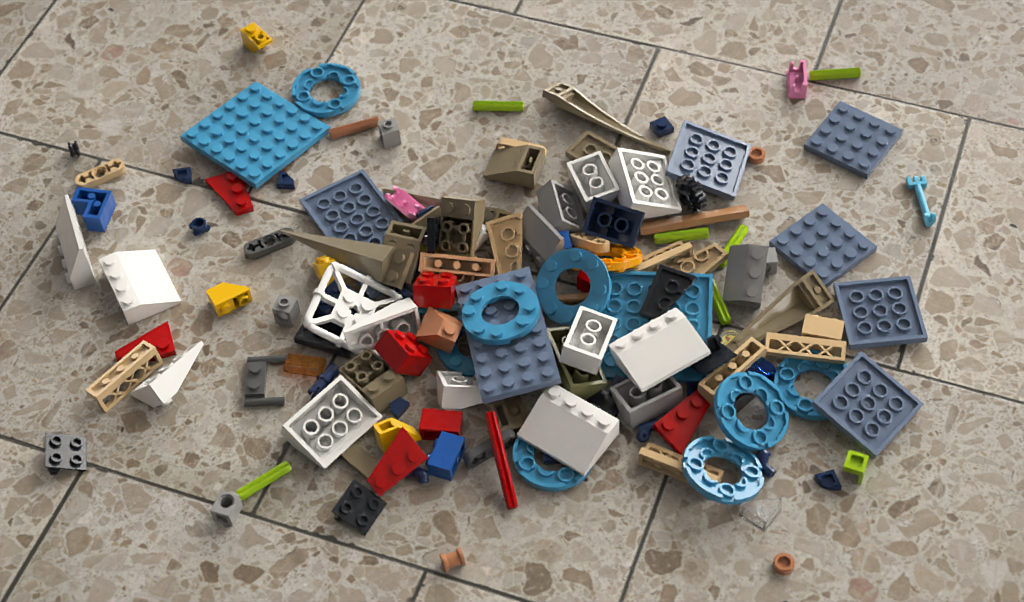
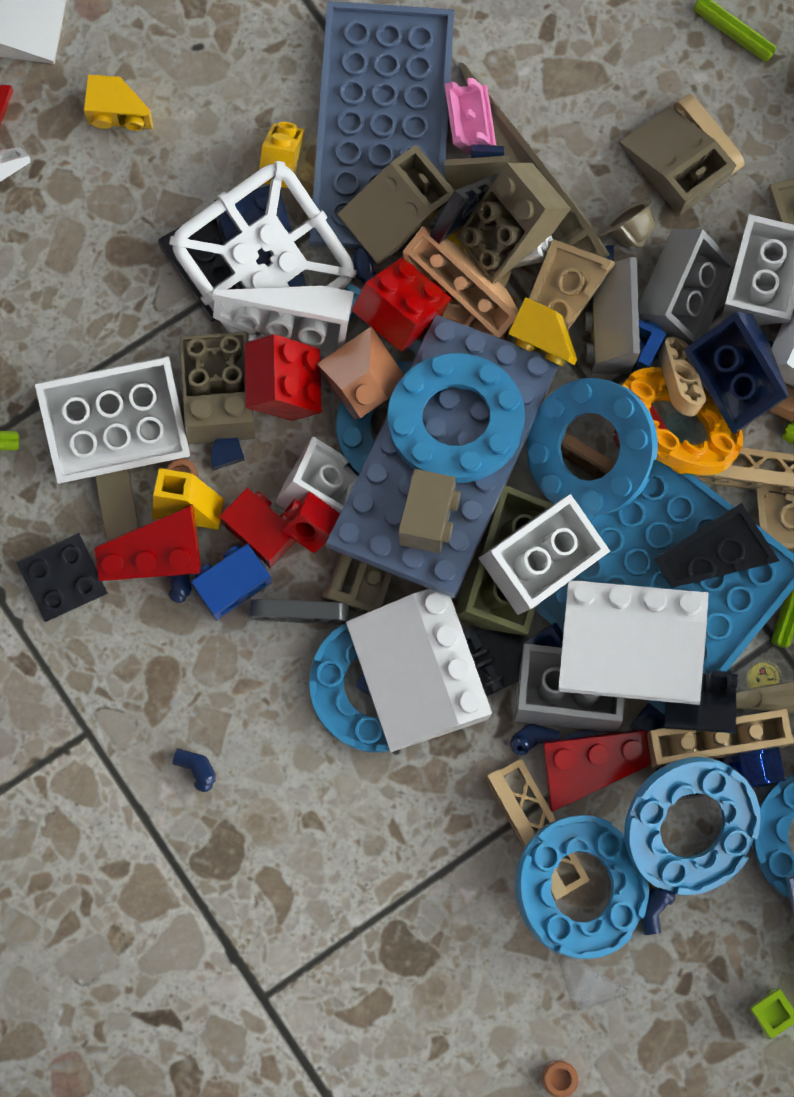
camera: 25 degrees right, 25 degrees up
(256, 381) = (65, 272): dark grey plate -> none
(258, 252) = (246, 59): dark grey beam -> none
(286, 310) = (179, 184): light grey brick -> none
(305, 362) = (129, 272): clear orange tile -> none
(323, 380) = (153, 338): dark blue pin -> none
(379, 261) = (353, 201): dark tan plate -> none
(452, 559) = (126, 748): nougat bush -> none
(473, 404) = (310, 521): none -> red brick
(493, 544) = (199, 766): none -> dark blue arm
(501, 460) = (294, 647): red axle -> none
(512, 258) = (543, 329): none -> yellow slope
(516, 200) = (632, 225): none -> dark tan piece
(520, 351) = (428, 511): none -> dark tan brick
(828, 480) = (722, 999): dark blue tile -> none

